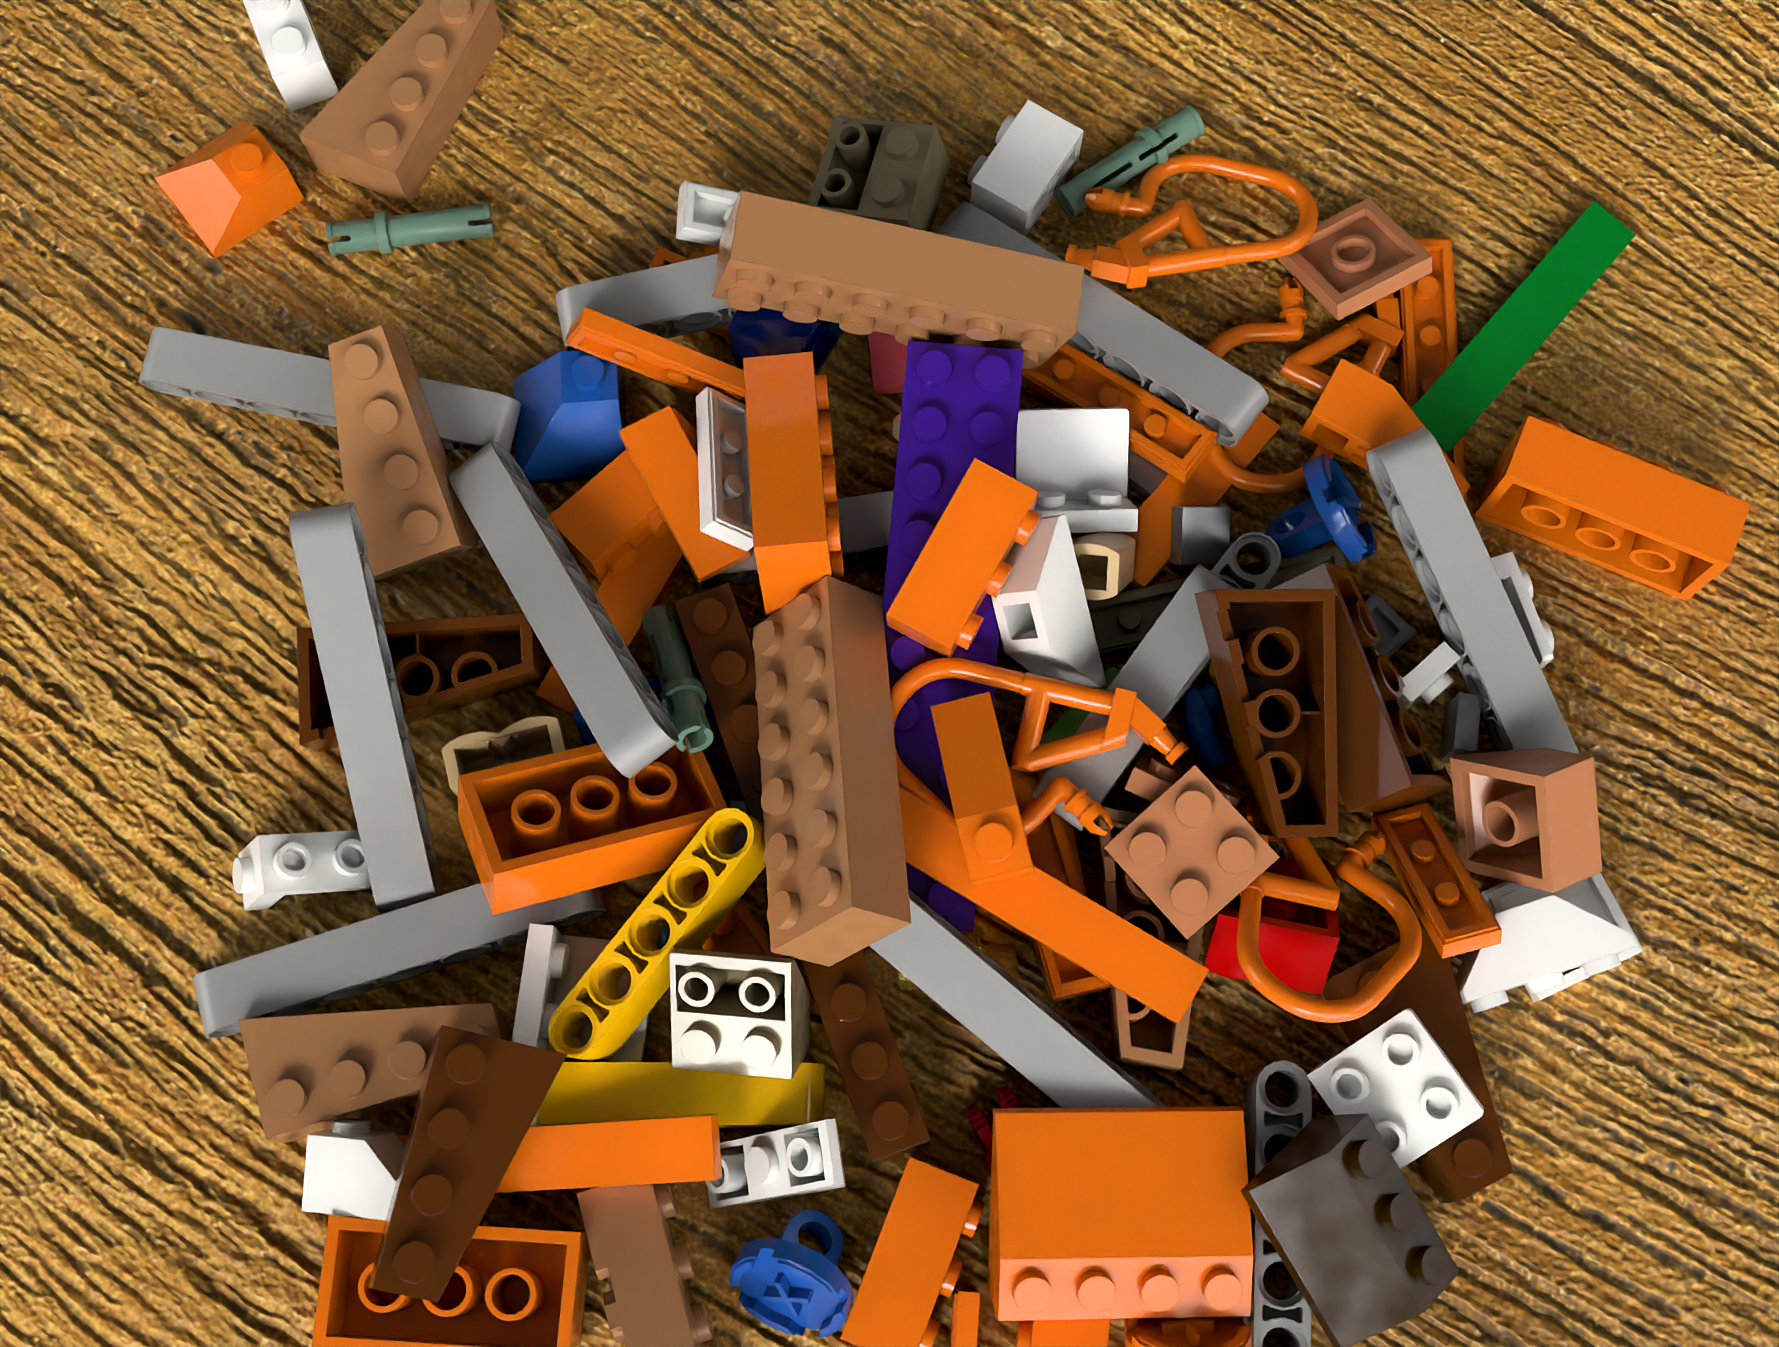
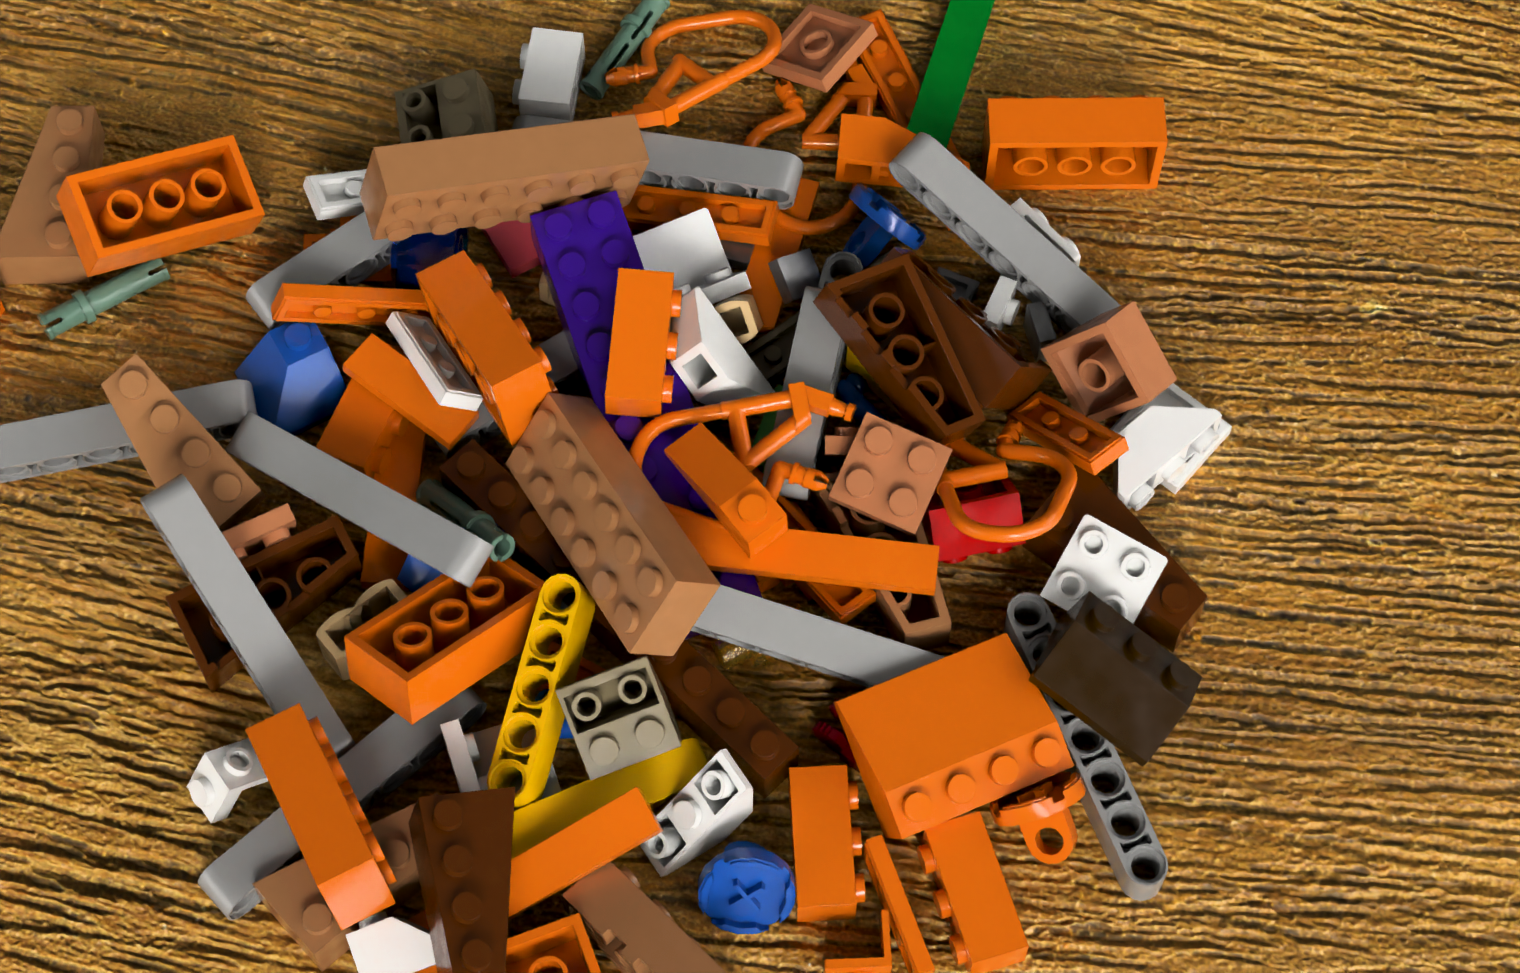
camera: 25 degrees left, 10 degrees down
(331, 990) = (324, 815): none -> orange brick
(445, 597) = (261, 532): none -> nougat plate
(506, 148) = (159, 205): none -> orange brick

